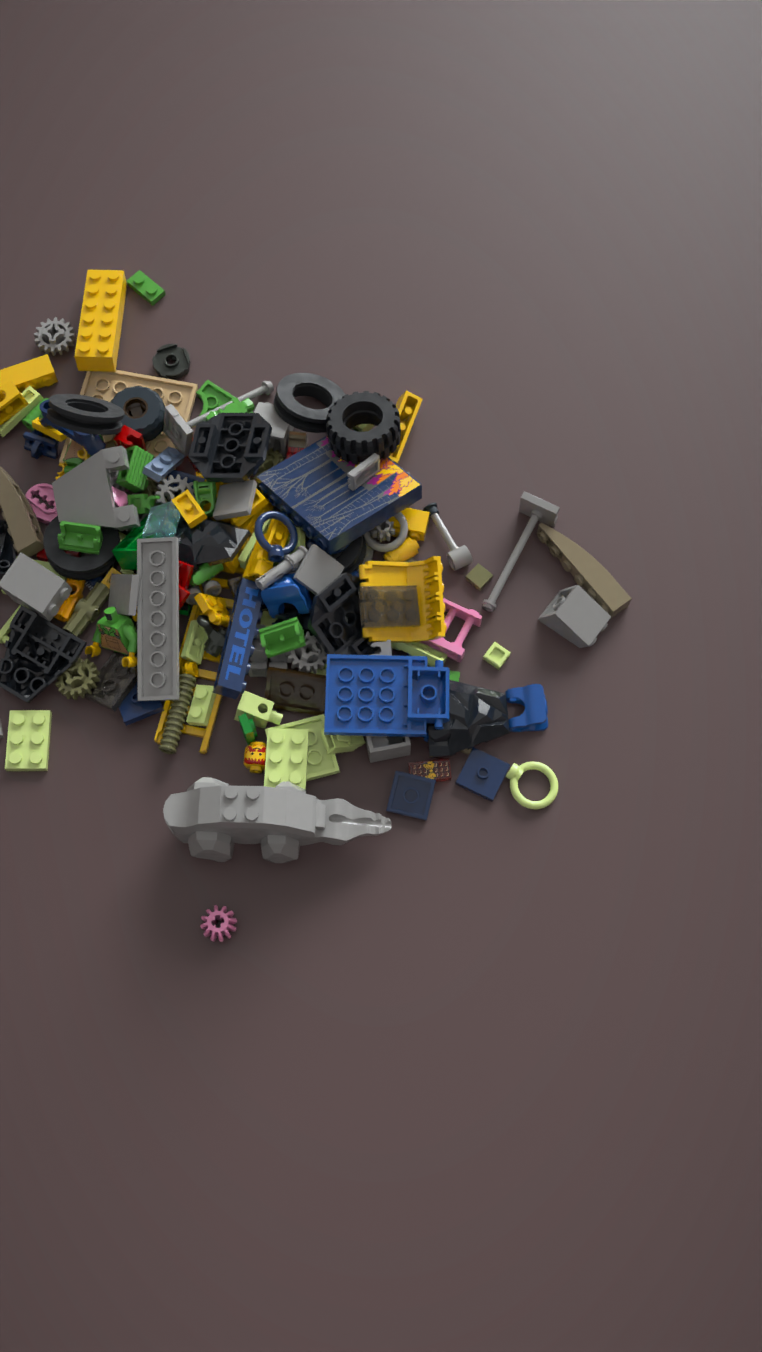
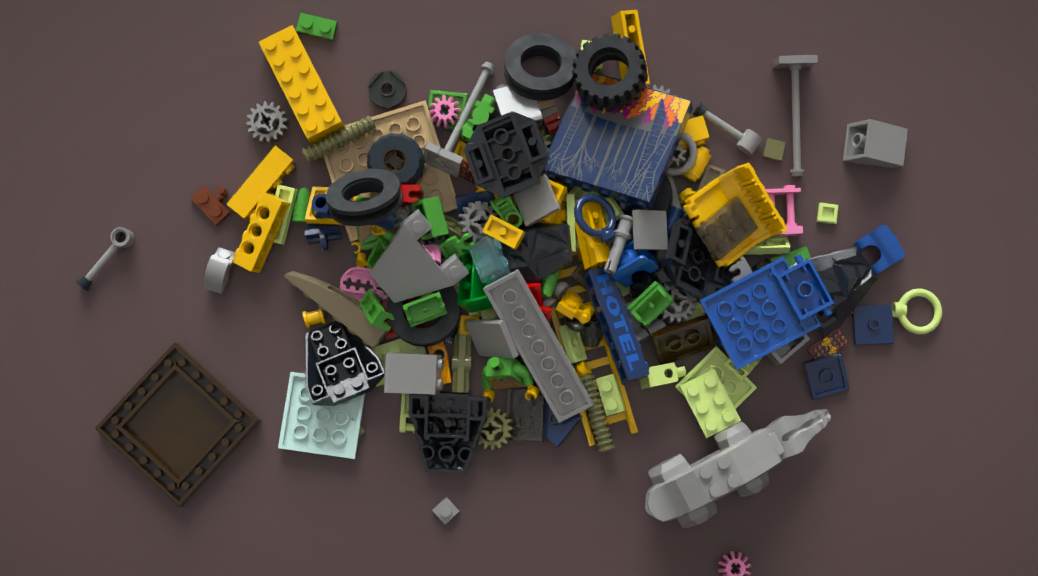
camera: 25 degrees left, 15 degrees up
(28, 740) = (483, 503): yellowish green plate -> none
(36, 522) = (374, 311): none -> bright green hinge
(103, 375) = (338, 139): none -> olive piece
(163, 464) = (451, 199): sand blue plate -> none
(206, 398) = (437, 111): none -> bright pink gear
(248, 728) = (664, 396): green plate -> none
(255, 757) = (681, 413): yellow head -> none
(364, 471) = (636, 116): light grey tile -> none
(586, 571) = (864, 96): dark tan slope -> none

